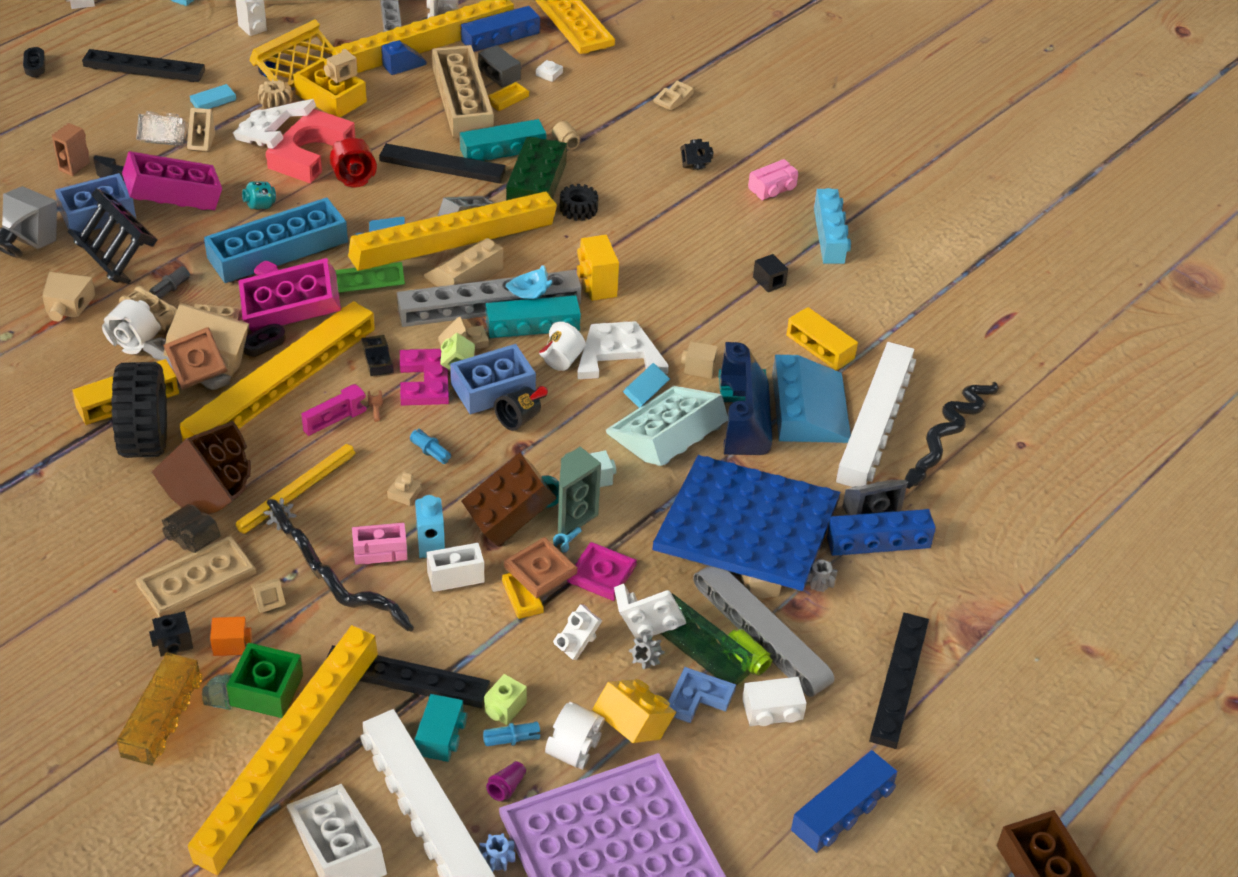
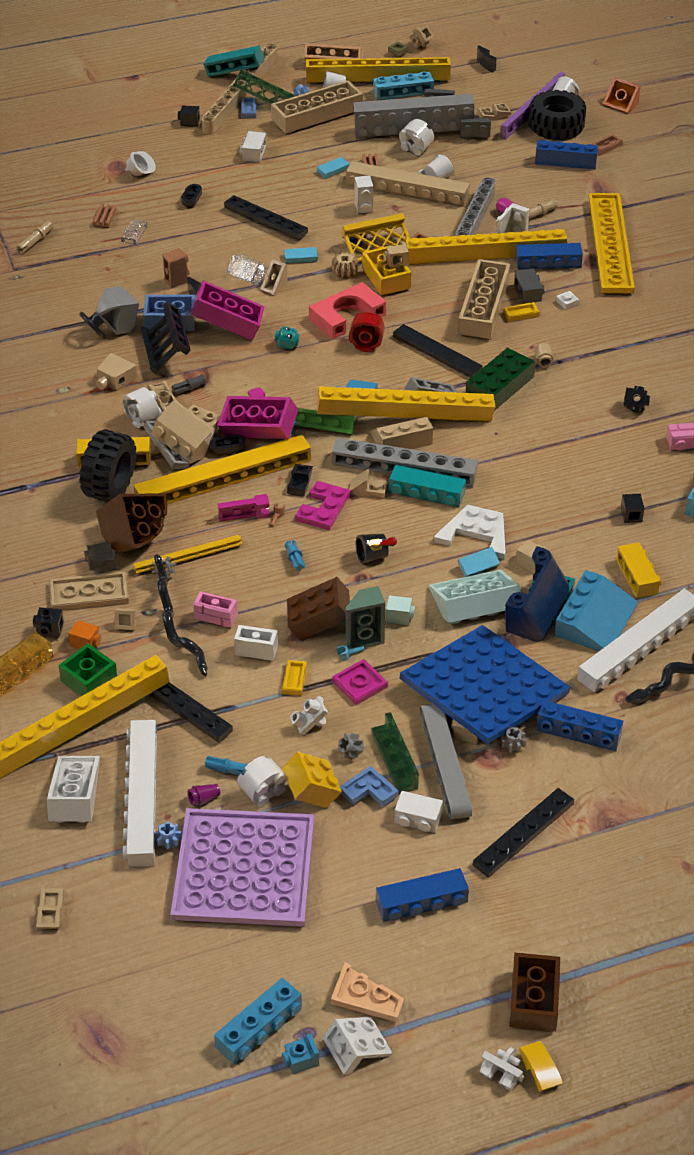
camera: 30 degrees right, 0 degrees up
(195, 358) = (167, 442): nougat tile -> none
(216, 693) = (52, 668): clear light blue brick -> none
(263, 124) = (323, 283): white wing -> none
(276, 239) = (277, 373): dark azure brick -> none
(400, 57) = (457, 259): blue slope -> none
(404, 489) = (259, 579): tan tile -> none
(429, 516) = (257, 604): medium azure torso -> none
(440, 727) = (181, 744): teal brick -> none
(456, 349) = (353, 495): yellowish green brick -> none
(489, 376) = (365, 518): medium blue brick -> none
(499, 140) = (489, 345): teal brick -> none
(505, 699) = (235, 742): yellowish green brick -> none
(530, 284) = (432, 461): medium azure hat -> none
(540, 567) = (315, 663): nougat tile -> none
(563, 346) = (432, 514): white hat -> none
(579, 202) = (520, 410): black tyre -> none
(598, 267) = (495, 463): yellow brick -> none
(650, 614) = (363, 720): white bracket -> none
(674, 96) = (654, 348): tan slope -> none
(761, 658) = (427, 777): lime head -> none
(875, 497) = (591, 699): flat silver slope -> none

